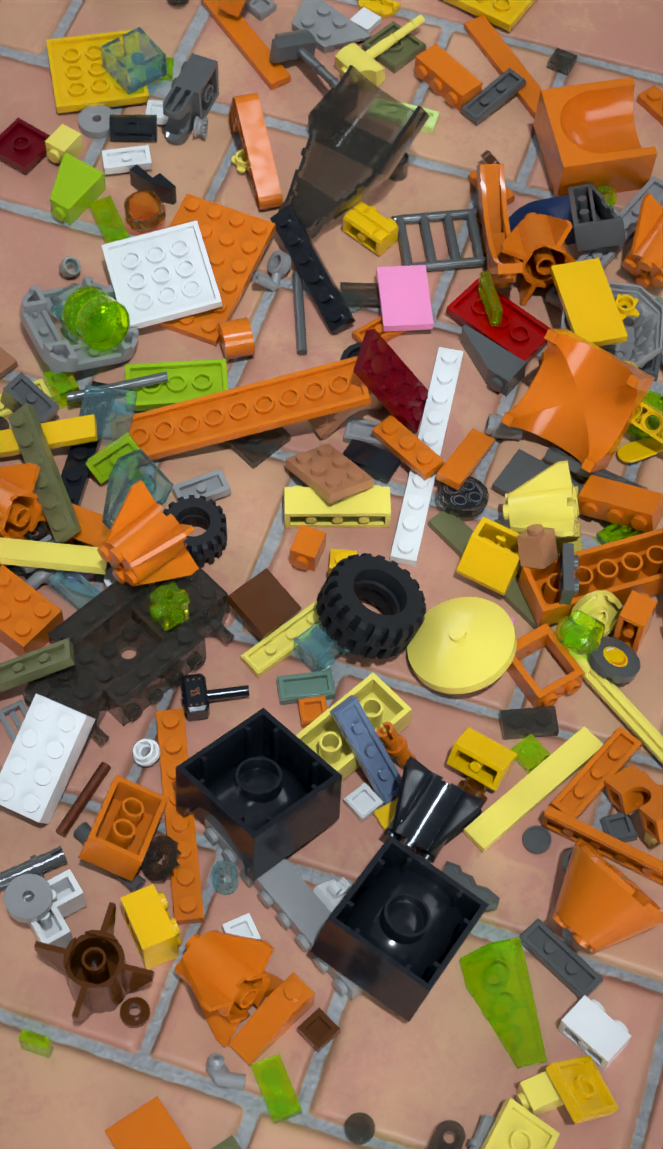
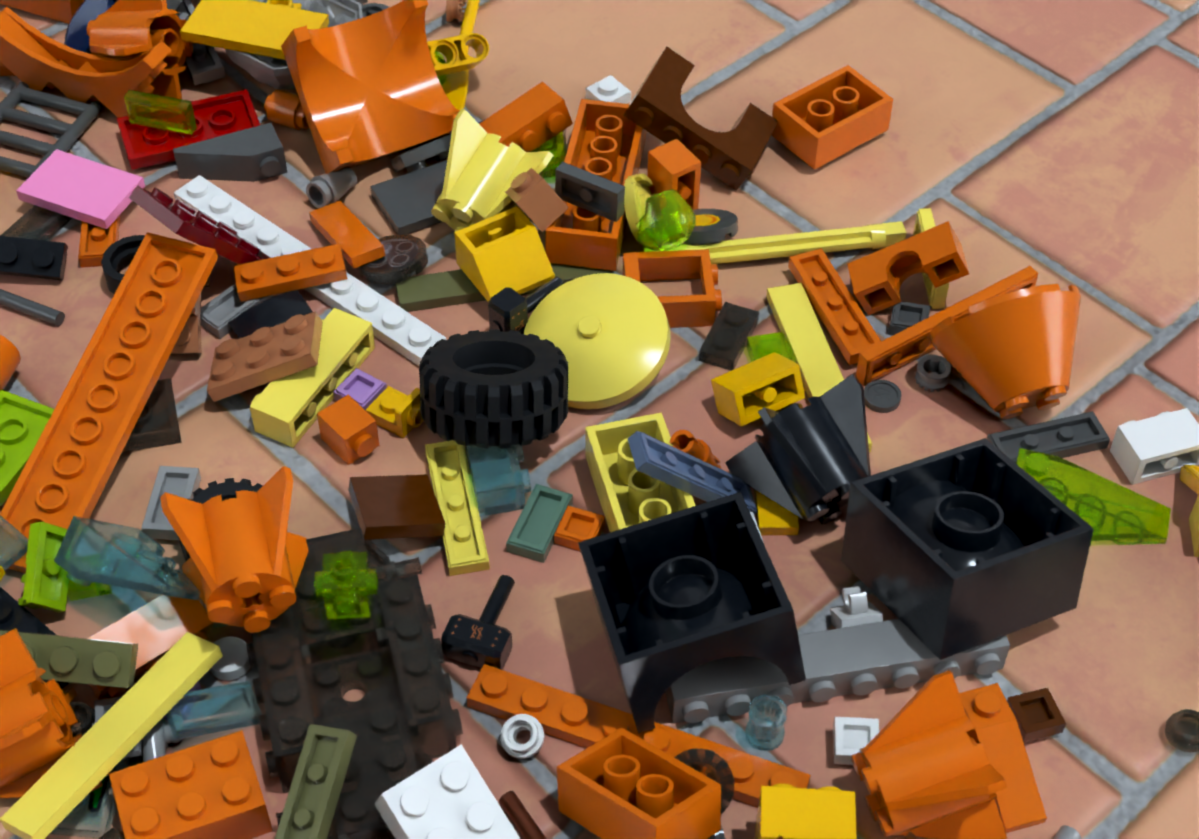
camera: 60 degrees left, 10 degrees down
(276, 1089) = (1099, 798): clear neon green plate -> none
(346, 537) = (360, 387): none -> lavender tile
(449, 586) = (510, 310): none -> black piece

